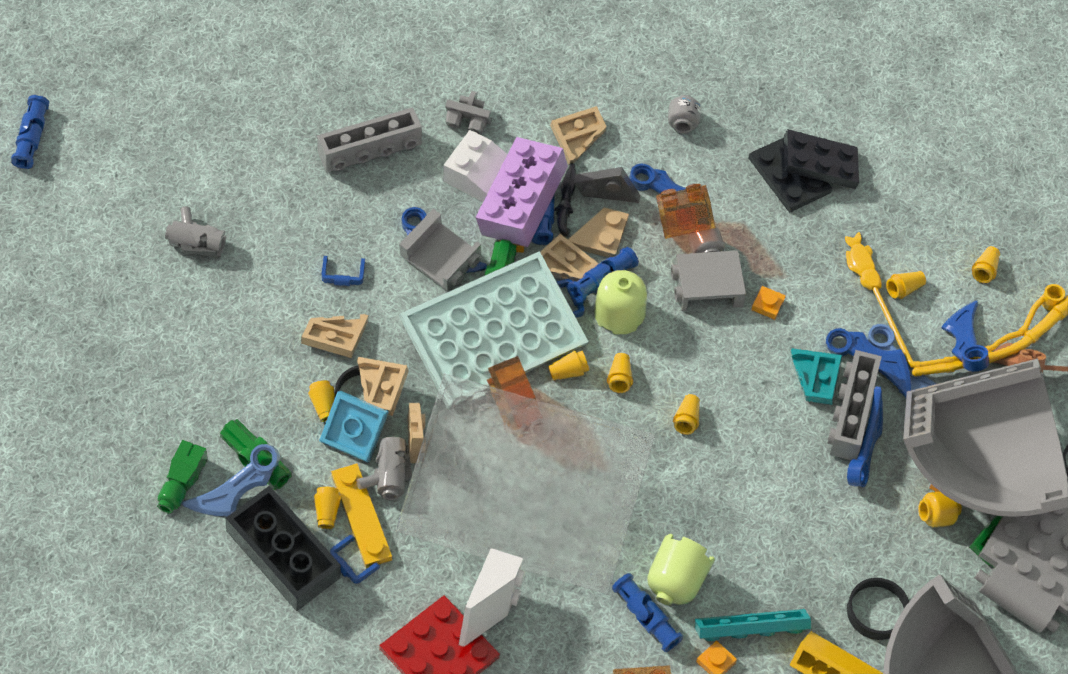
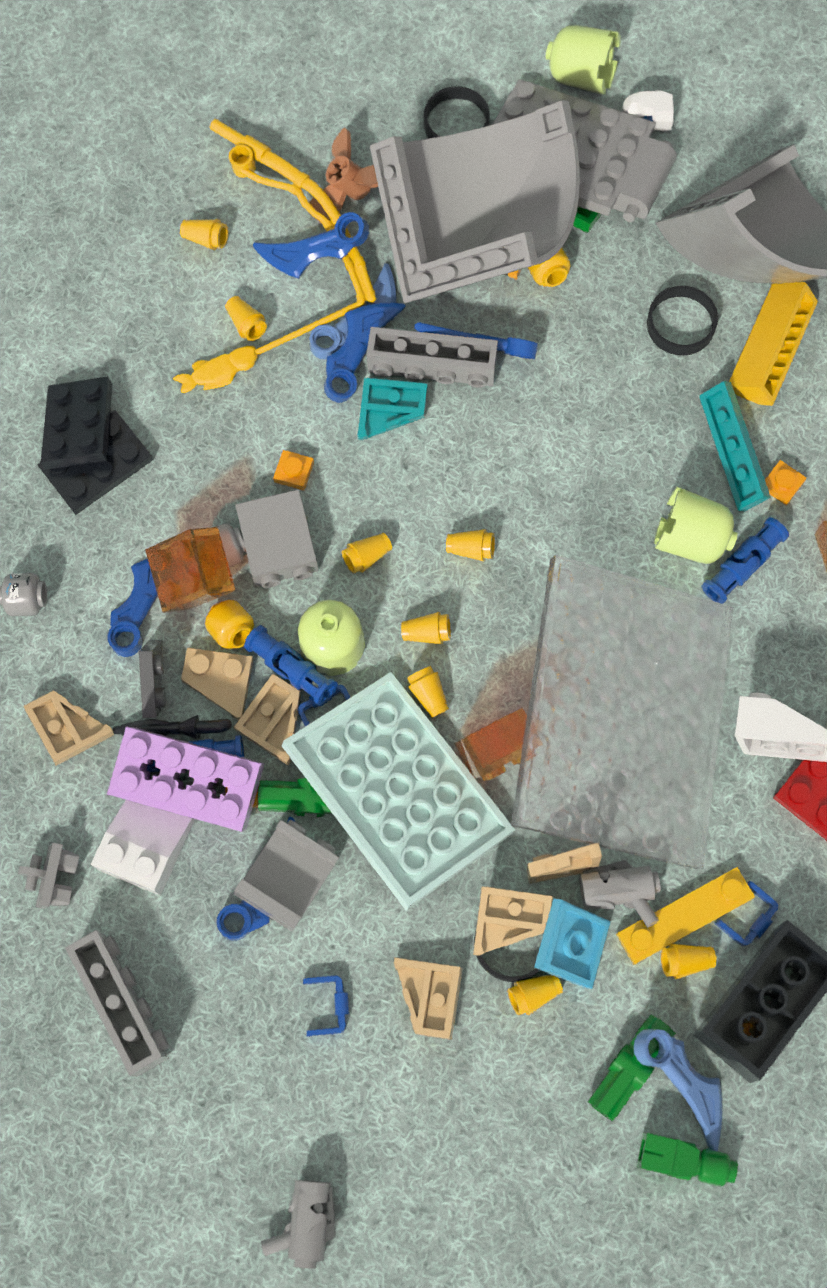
camera: 90 degrees left, 15 degrees up
(643, 240) = (229, 624): none -> yellow head
(690, 339) = (365, 552): none -> yellow cone

